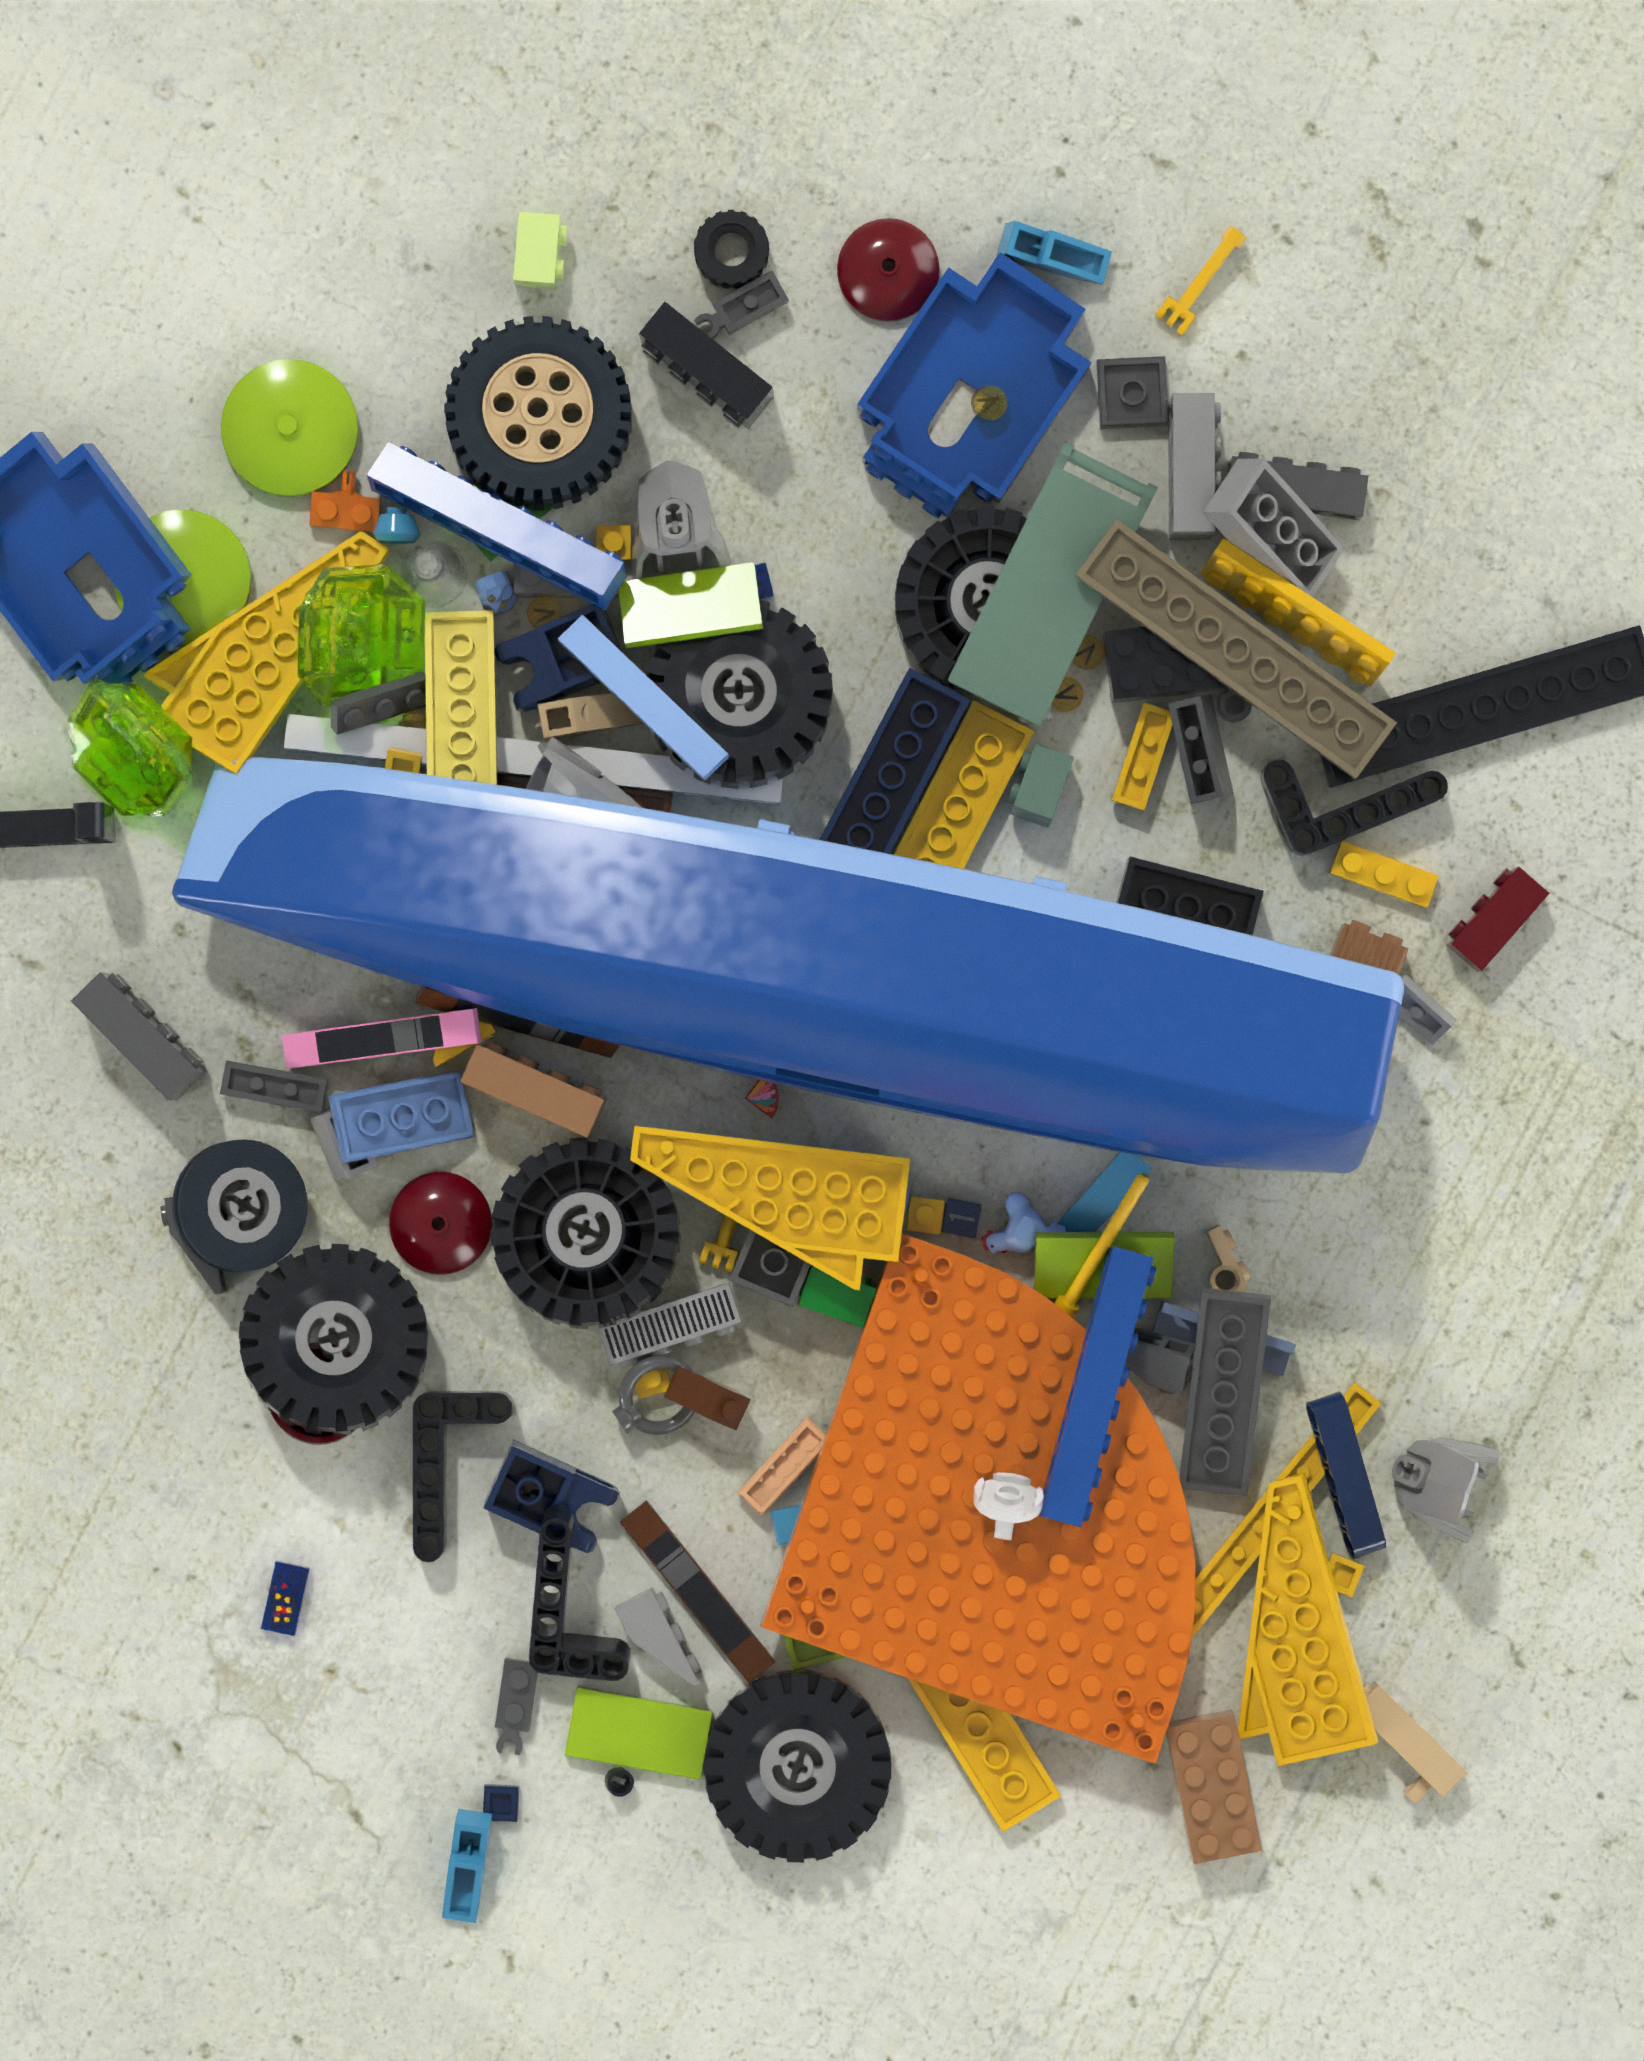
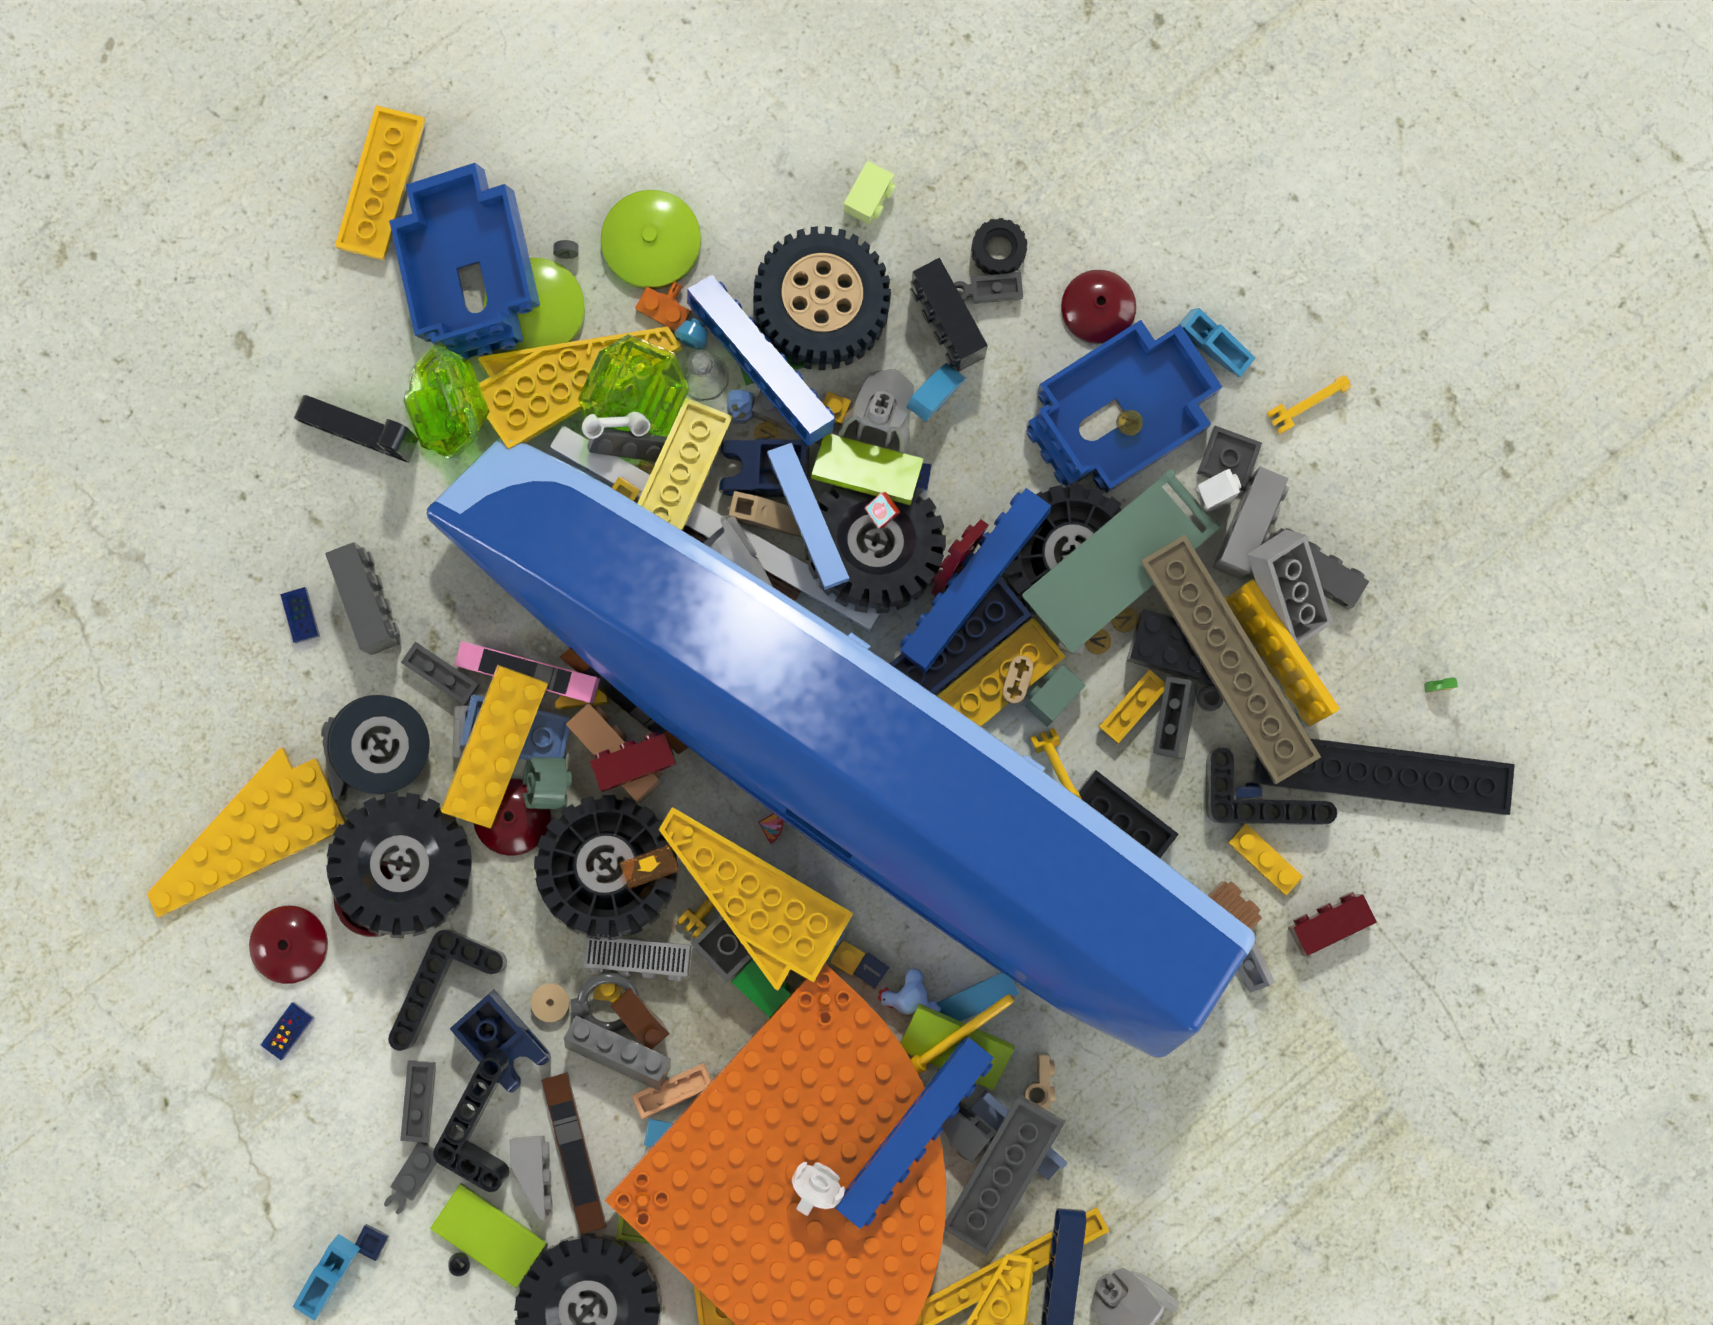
camera: 20 degrees right, 5 degrees down
(67, 1089) = (300, 615): none -> clear blue tile
(142, 1361) = (265, 822): none -> yellow wing
(189, 488) = (566, 249): none -> dark grey tile
(263, 1492) = (305, 940): none -> dark red dish
(377, 671) = (635, 421): none -> white bar
(384, 1147) = (494, 746): none -> yellow plate
(466, 1163) = (546, 783): none -> sand green brick
(482, 1612) = (418, 1101): none -> dark grey plate
(563, 1091) = (633, 761): none -> dark red brick
(588, 1426) = (549, 1002): none -> tan piece
(638, 1210) = (649, 866): none -> clear orange tile
(698, 1449) = (617, 1053): none -> dark grey brick
(731, 650) = (882, 510): none -> tile
(732, 470) = (935, 392): none -> dark azure slope
(850, 668) = (959, 551): none -> dark red plate
(883, 686) = (975, 580): none -> blue brick
(979, 787) = (1023, 681): none -> tan beam
(1060, 851) = (1048, 745): none -> yellow hinge
(1134, 446) = (1218, 491): none -> white slope
(1331, 798) = (1249, 791): none -> dark blue tile
(1511, 565) = (1440, 685): none -> bright green tile

